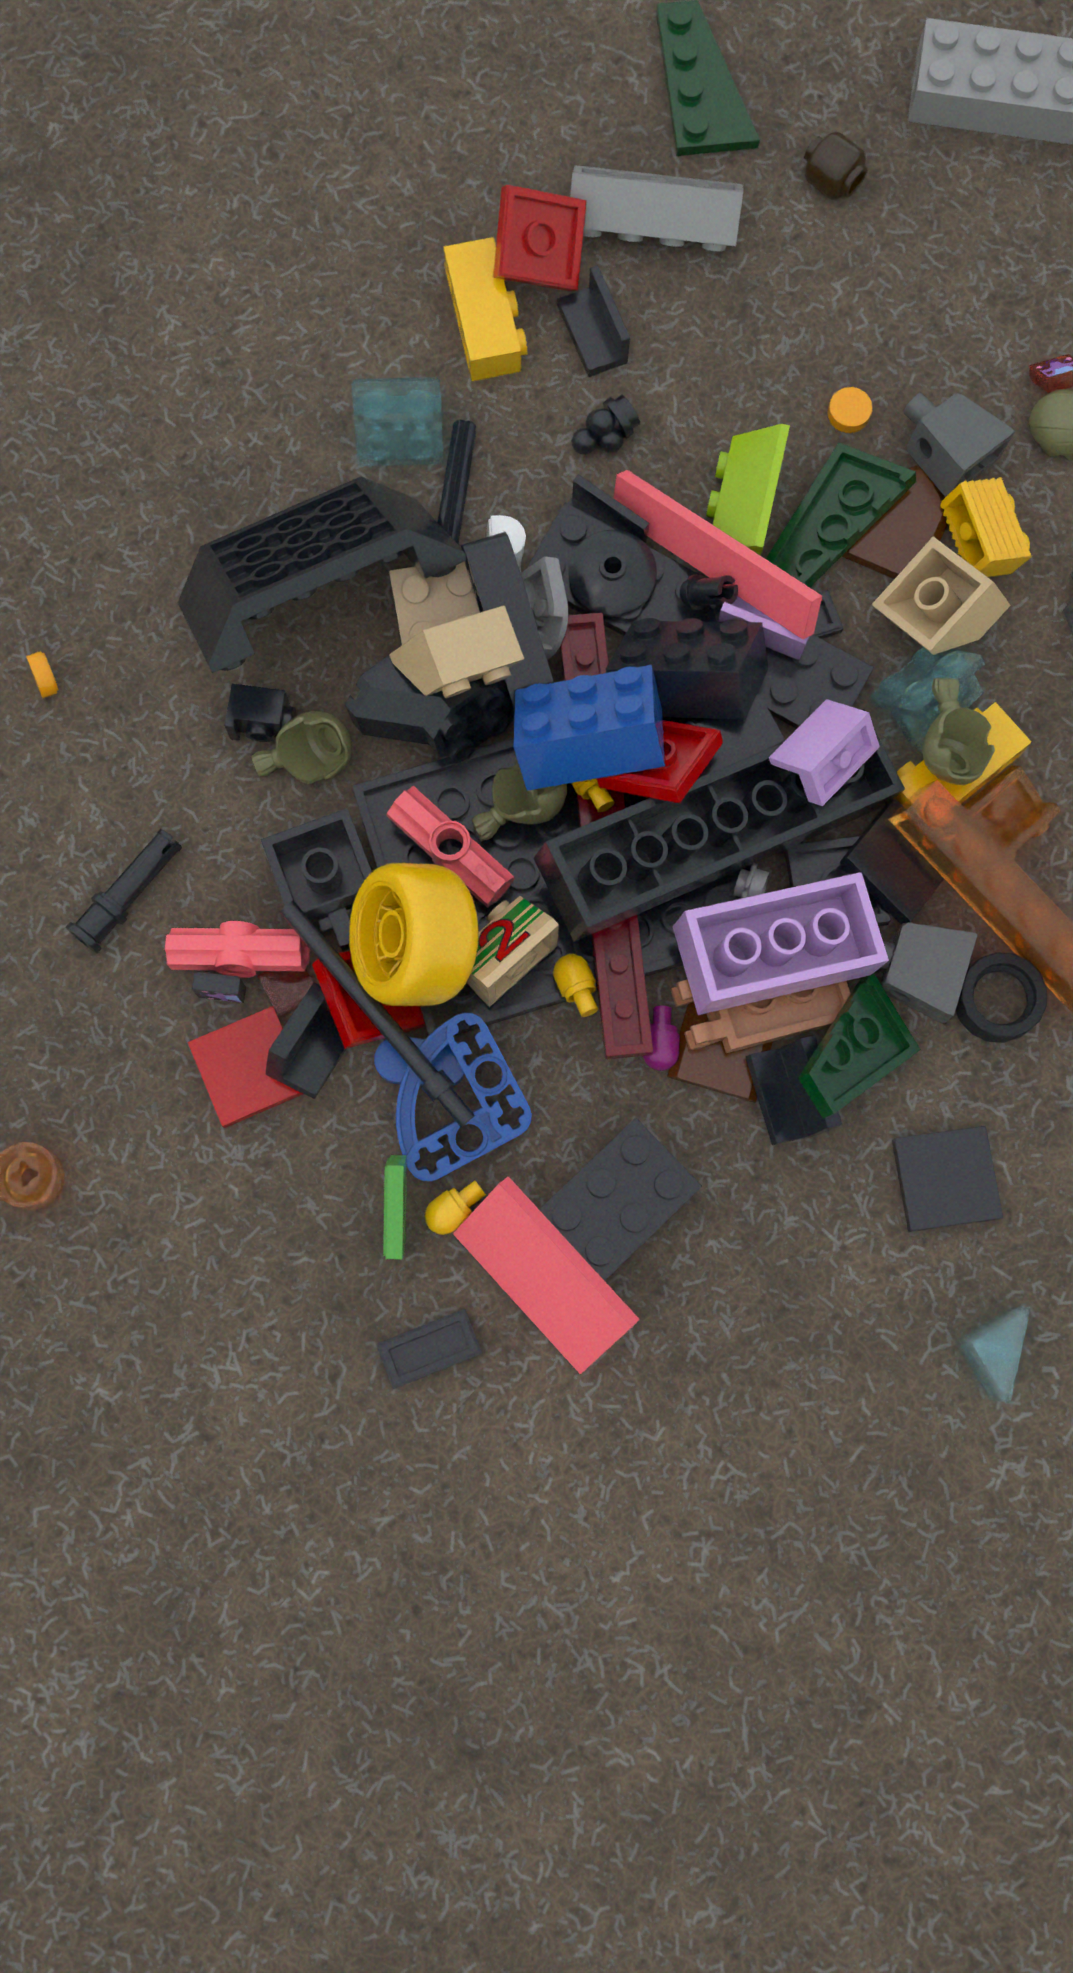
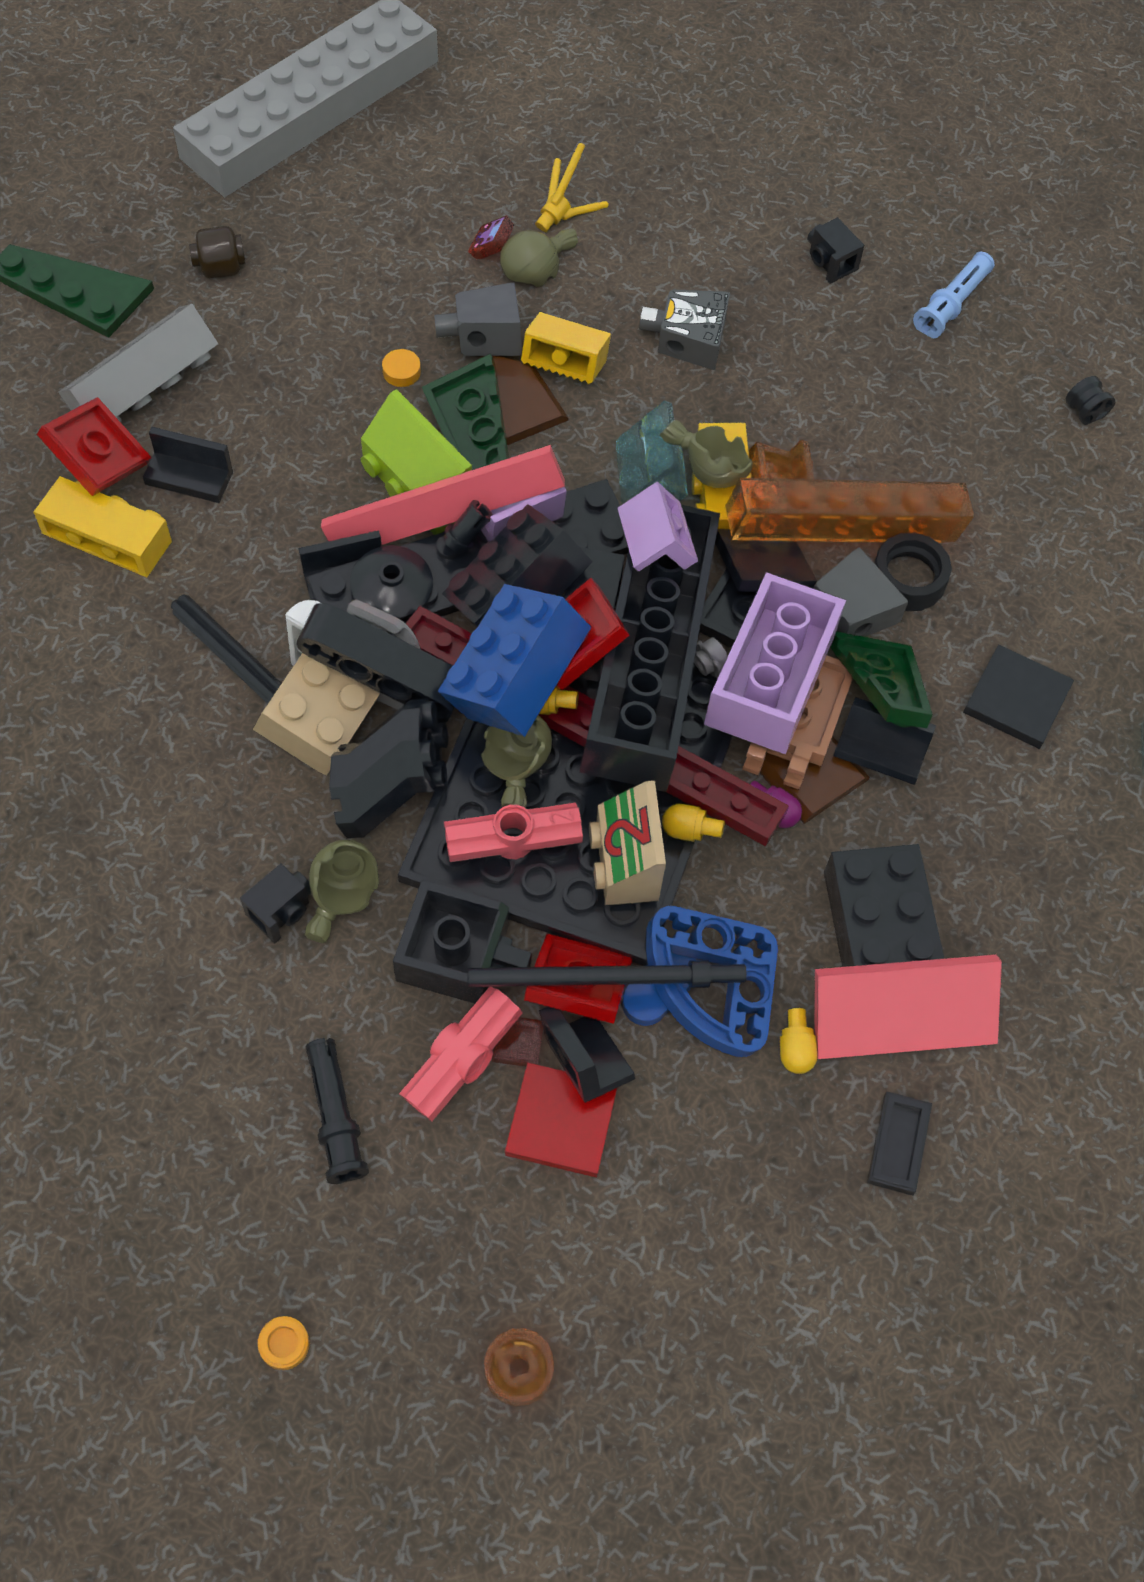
camera: 55 degrees left, 15 degrees down
(42, 674) = (91, 1045): light orange tile -> none
(219, 987) = (480, 1091): black tile -> none
(300, 551) = (182, 779): black slope -> none
(395, 1206) = (771, 1078): bright green tile -> none
(398, 421) = (136, 638): clear light blue bracket -> none
(413, 934) = (573, 894): yellow wheel -> none
(459, 653) = (385, 698): tan slope -> none
(606, 427) = (272, 513): black piece -> none
(941, 600) = (597, 400): tan slope -> none

